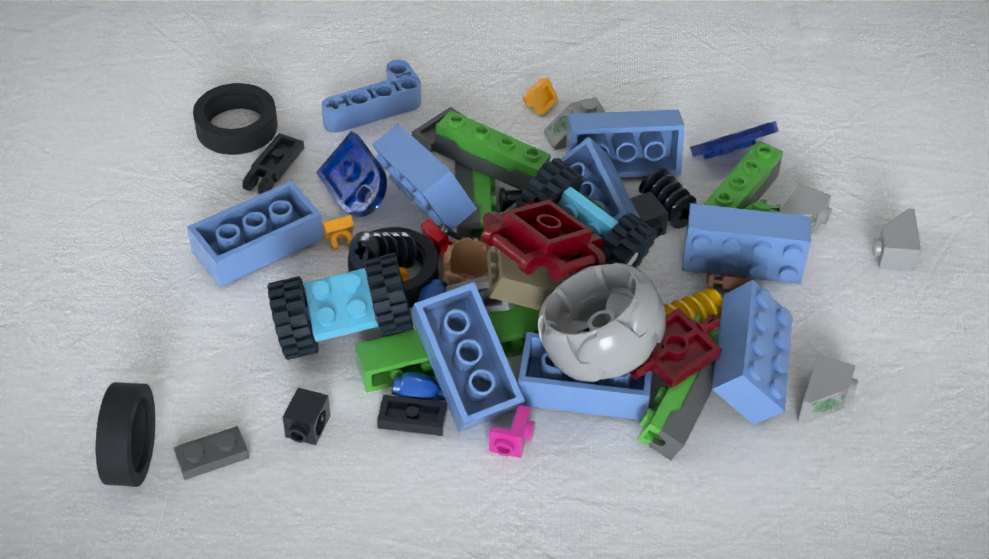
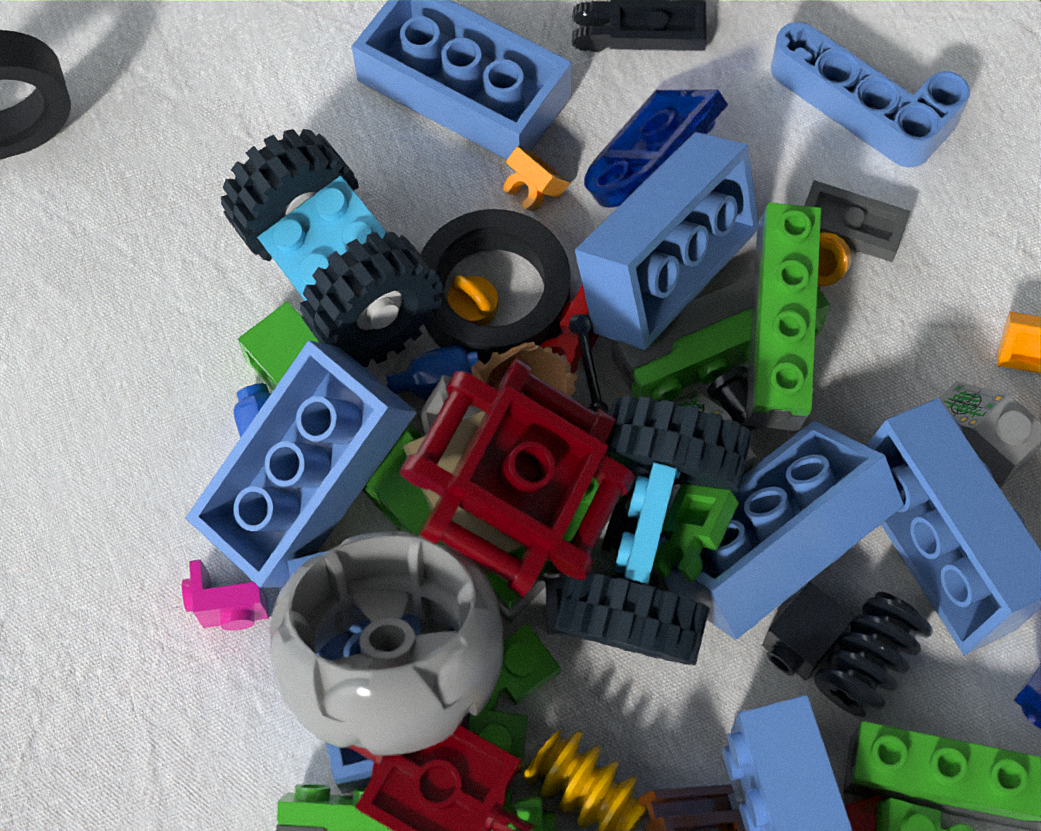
camera: 70 degrees right, 20 degrees up
(211, 452) = (53, 215): dark grey plate -> none
(306, 416) = (145, 301): black brick -> none
(375, 244) = (491, 253): black piece -> none
(412, 415) = (204, 433): black plate -> none

